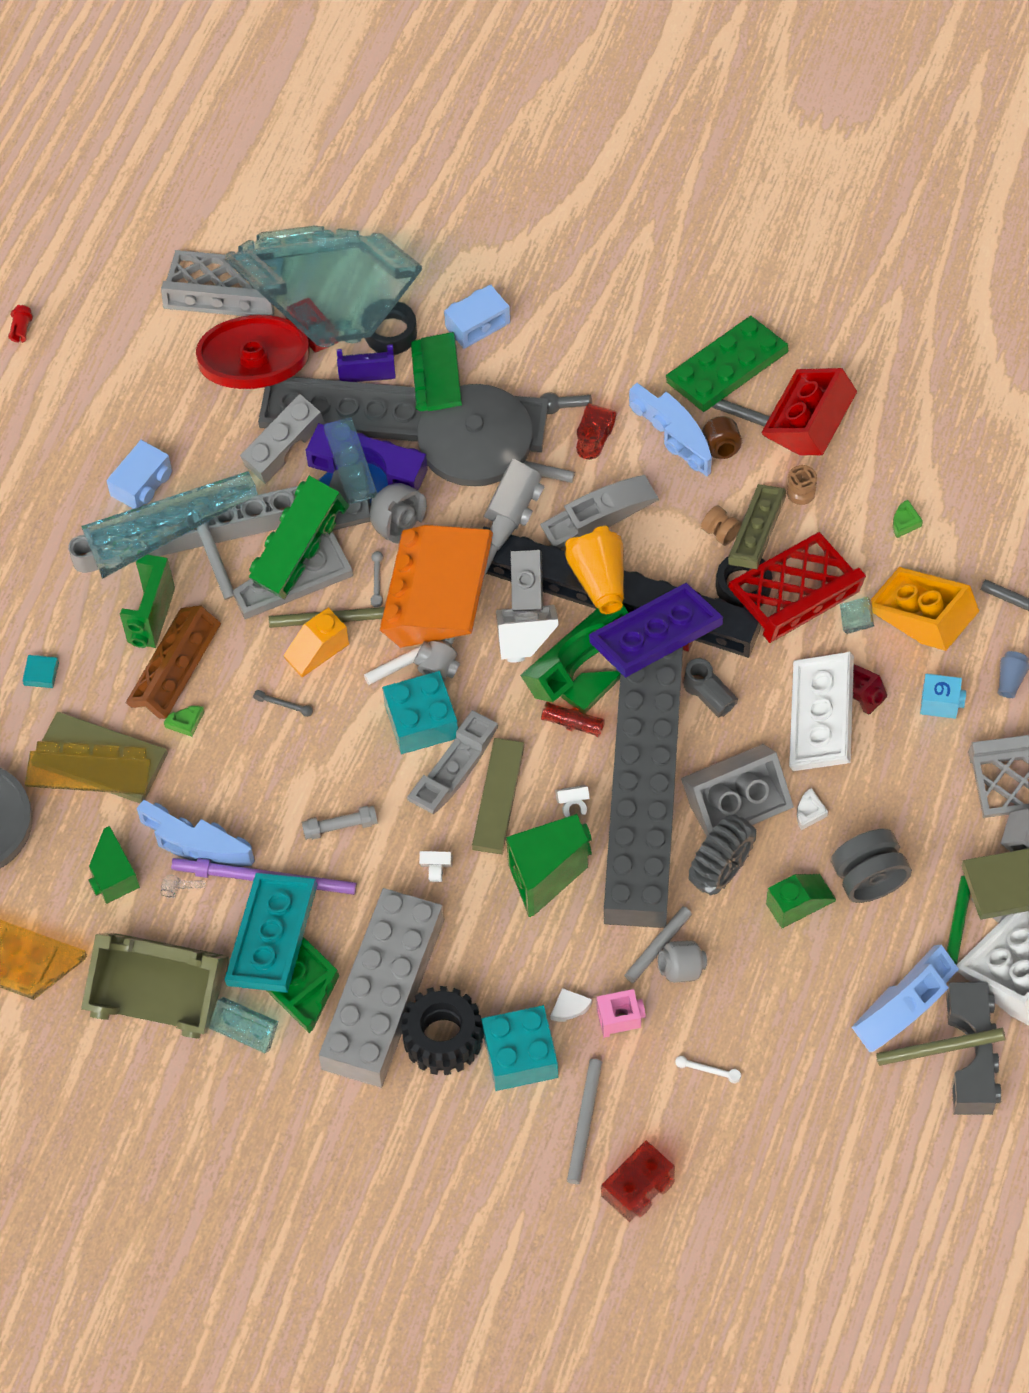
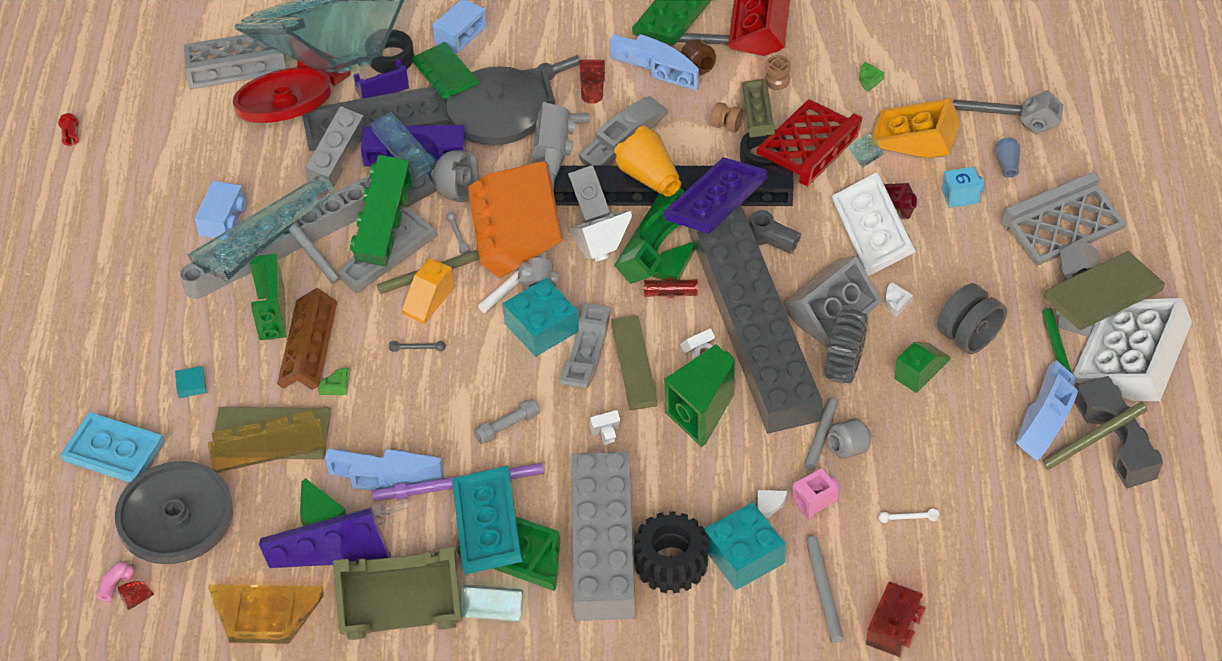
camera: 20 degrees left, 10 degrees down
(110, 905) = (319, 544): none -> dark purple wing

